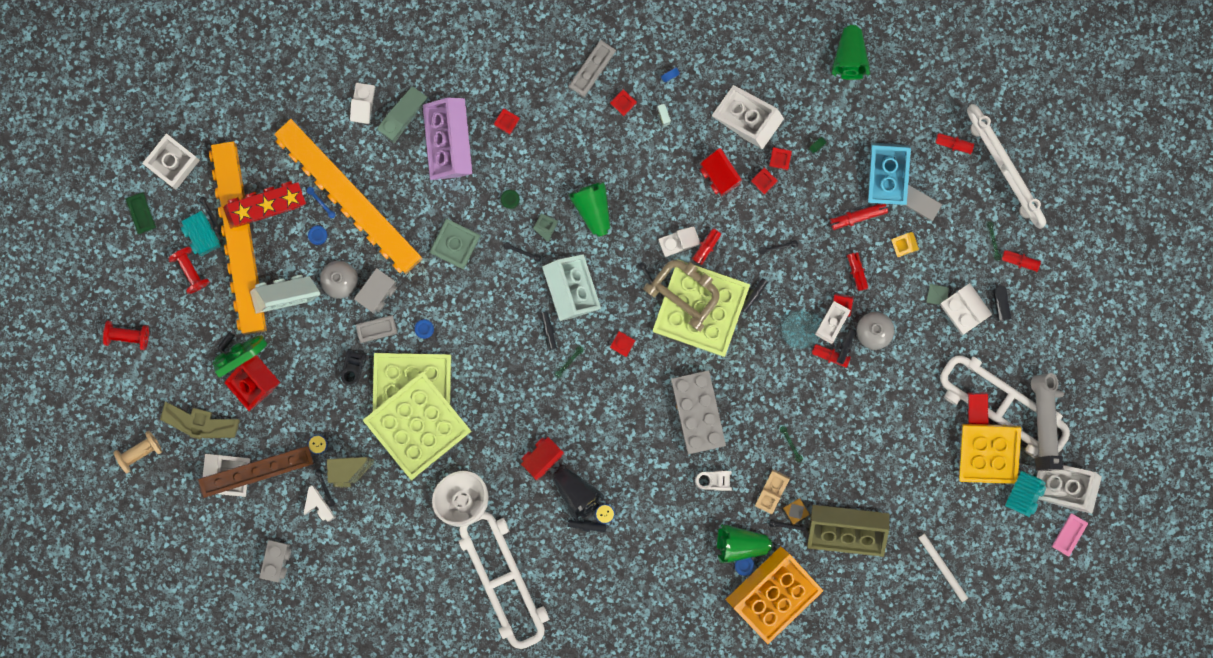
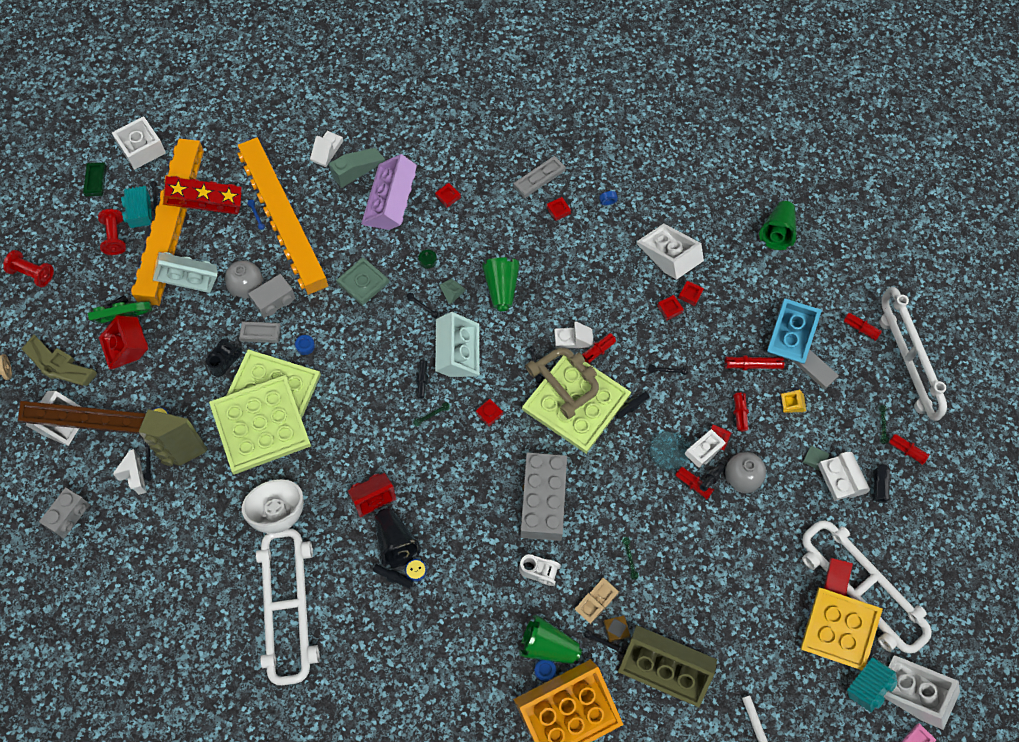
camera: 10 degrees right, 20 degrees down
(317, 235) = (241, 239): blue tile -> none
(664, 115) = (592, 227): light aqua tile -> none
(720, 173) = (631, 286): red slope -> none
(817, 145) = (729, 291): dark green tile -> none
(1046, 391) = (906, 651): light grey piece -> none

